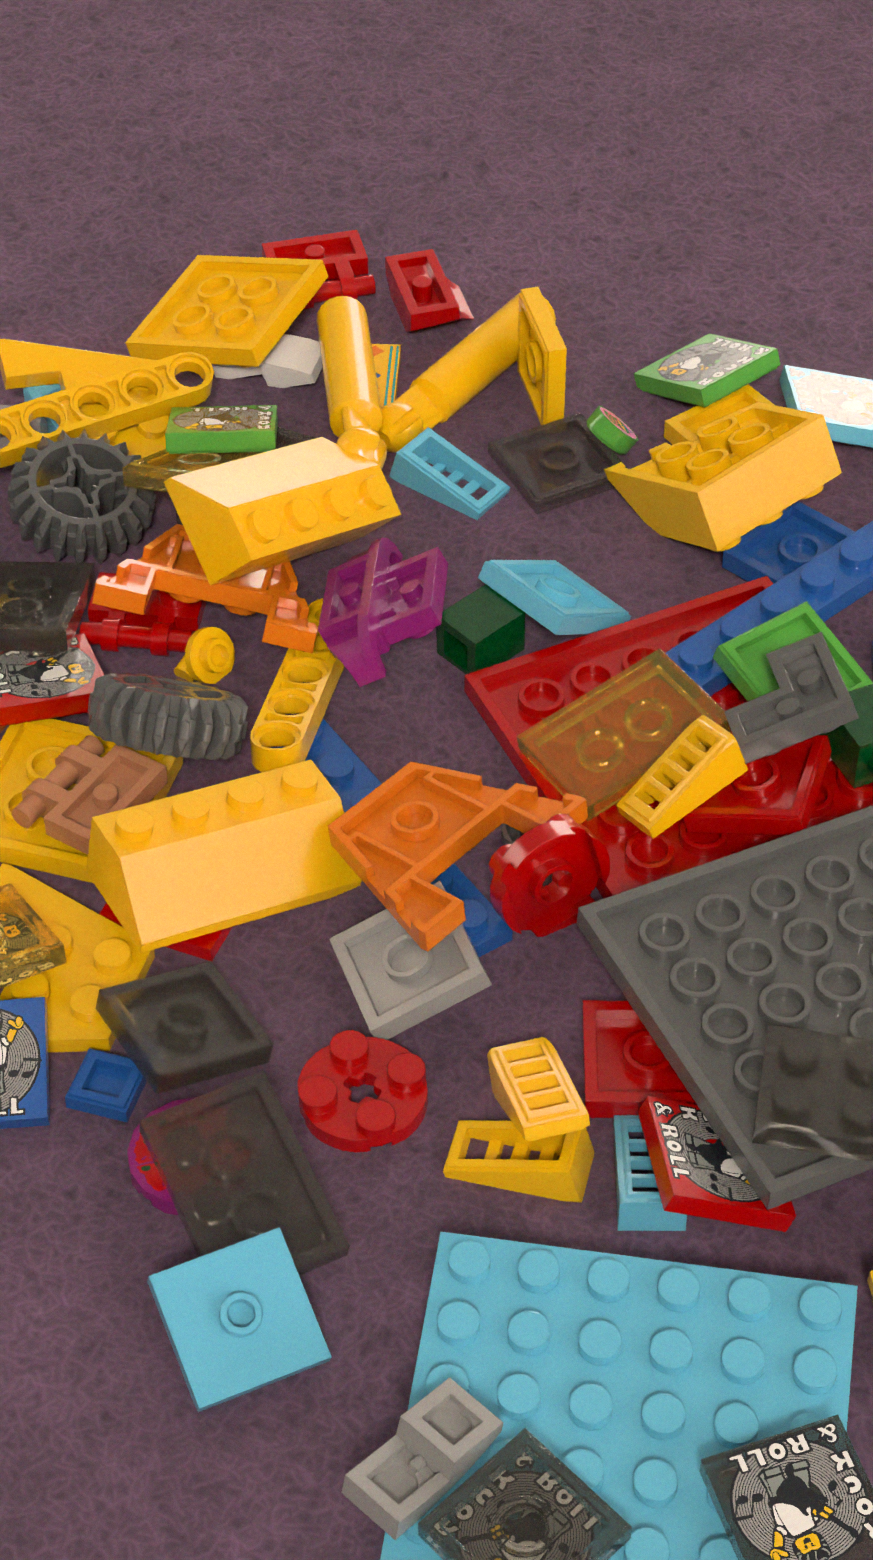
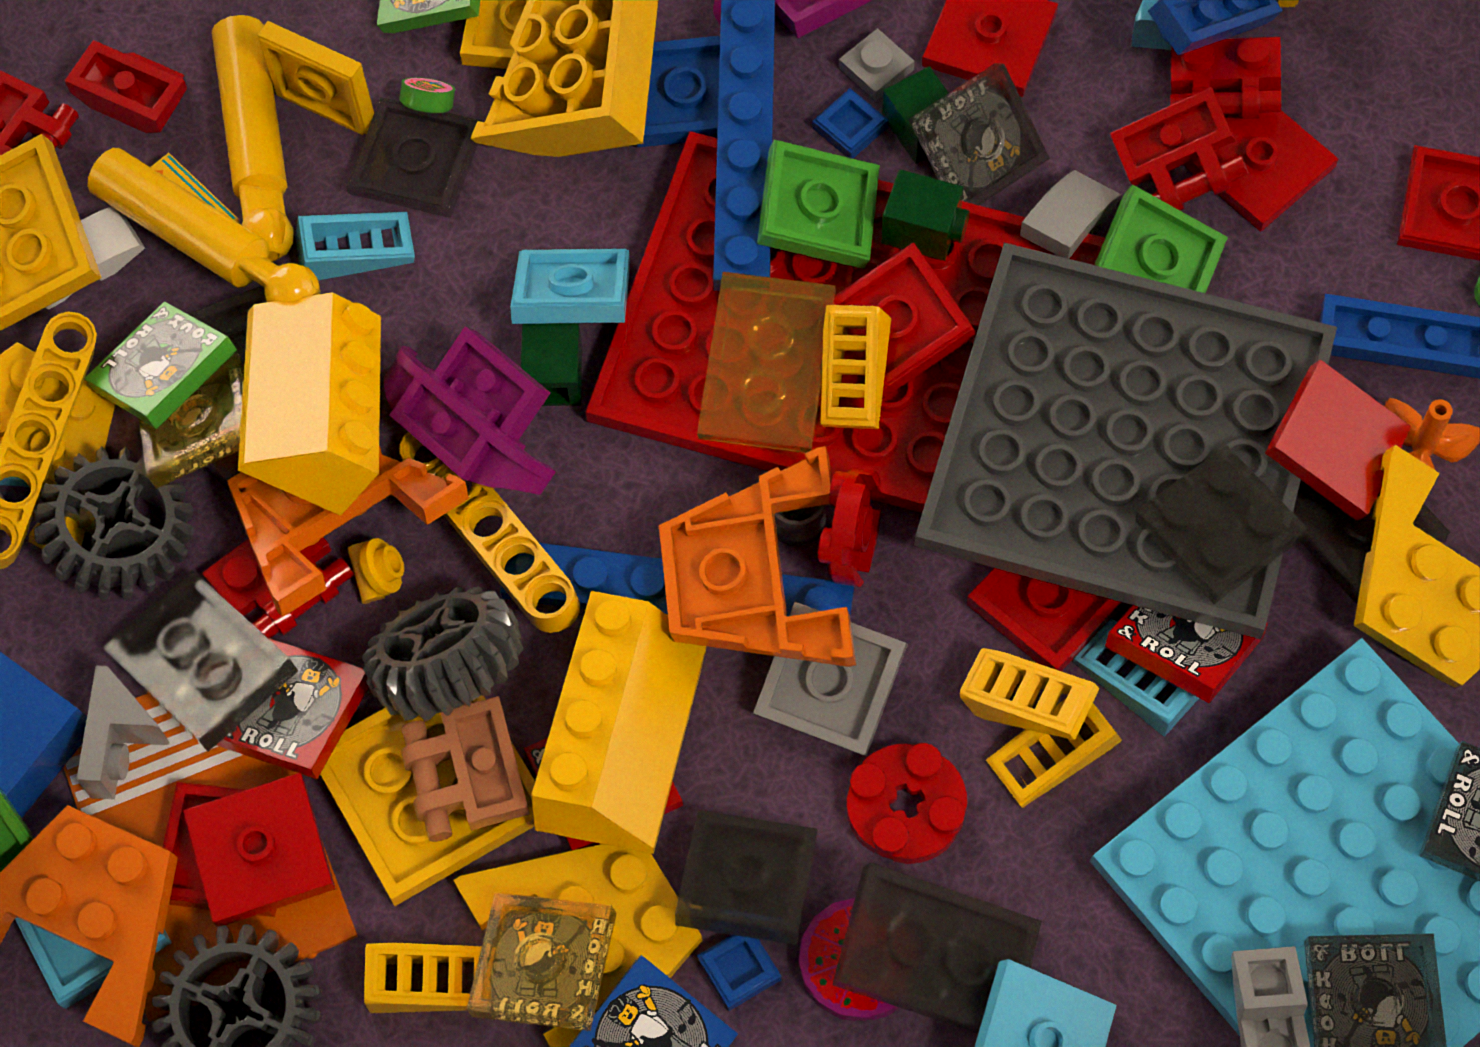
camera: 45 degrees left, 20 degrees up
(807, 704) = (887, 232): dark grey plate -> none

